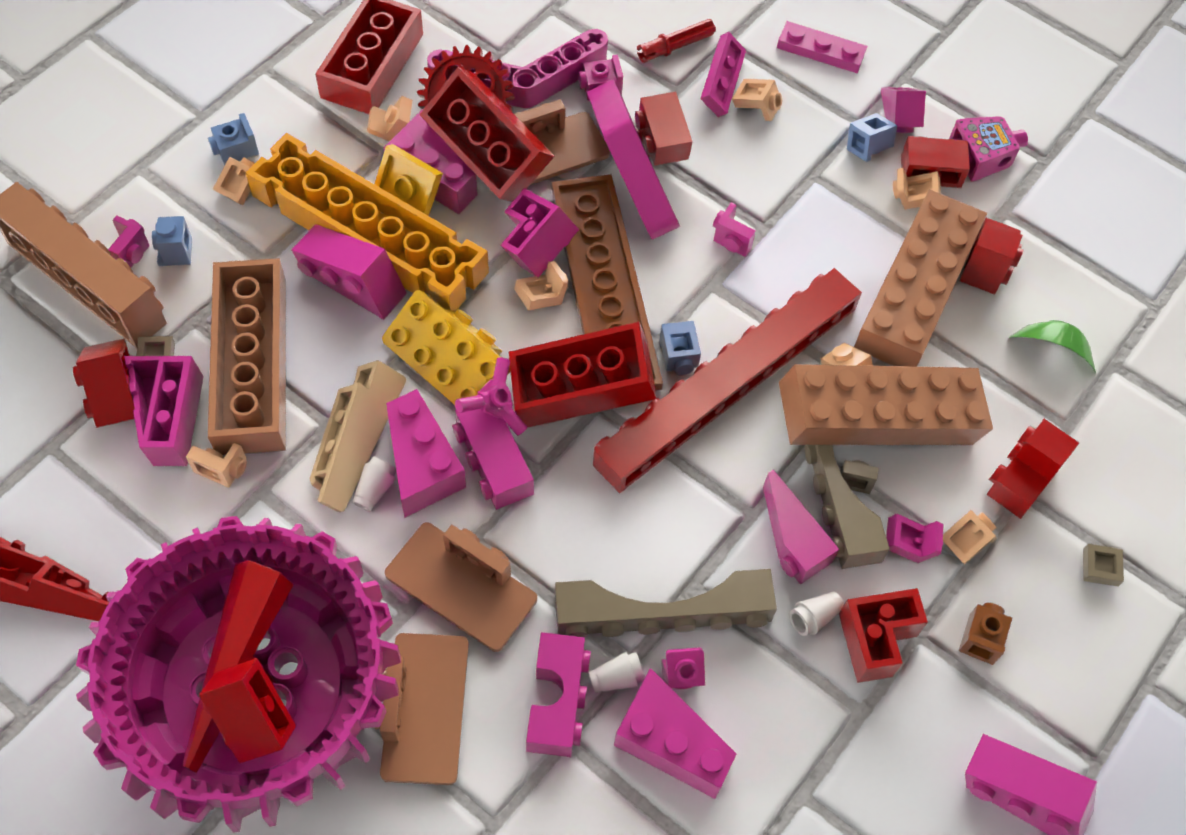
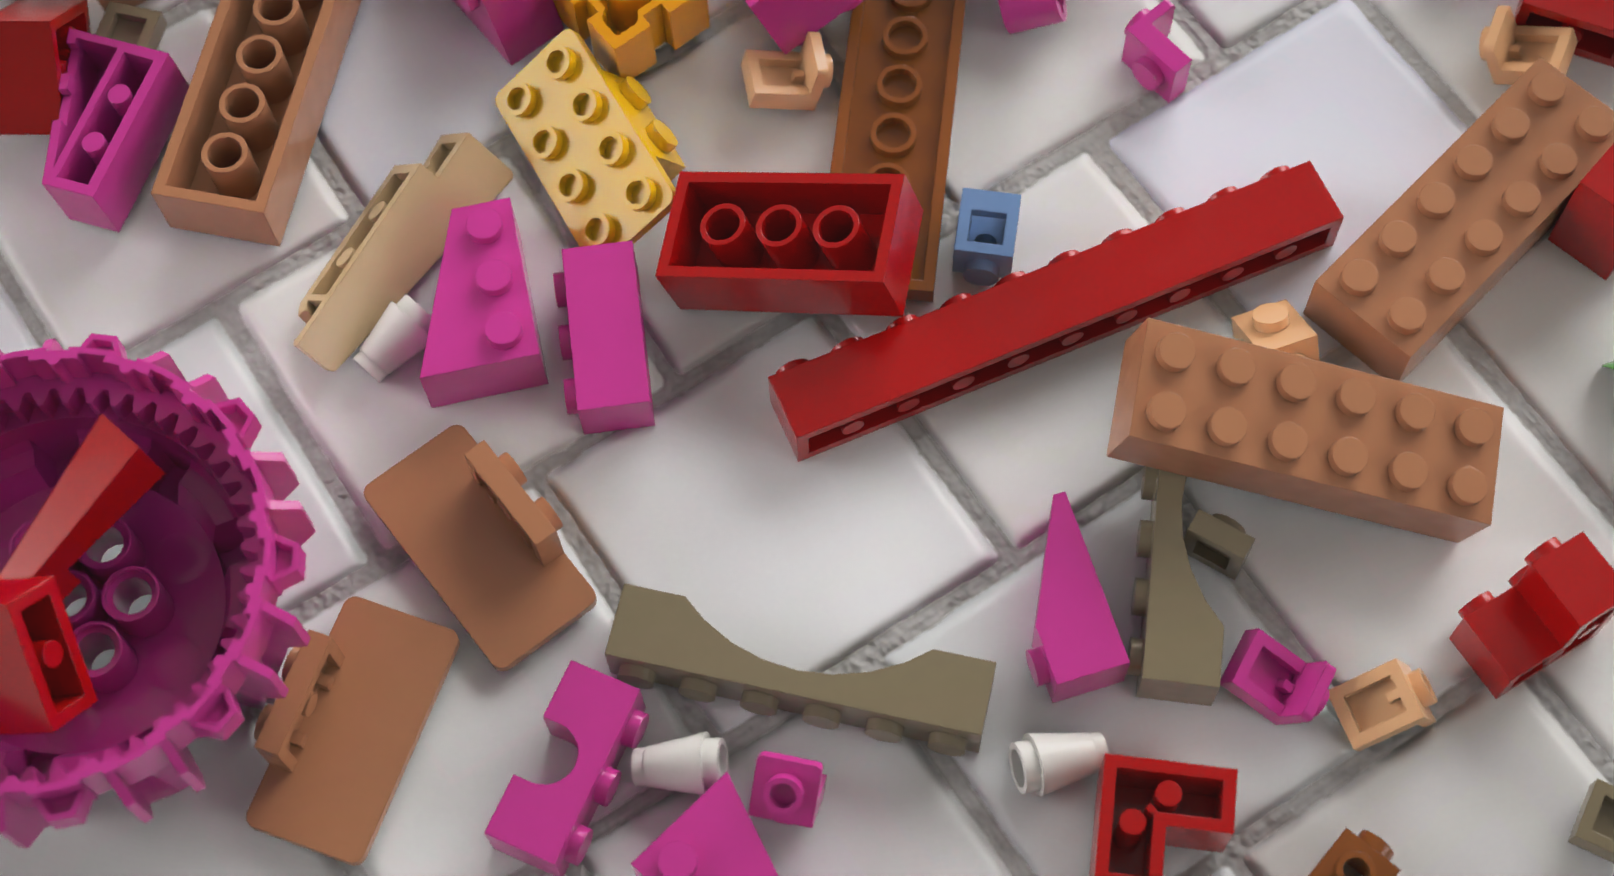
camera: 25 degrees right, 5 degrees up
(217, 467) = (168, 250): light nougat bracket -> none
(495, 399) = (627, 247): dark pink piece -> none

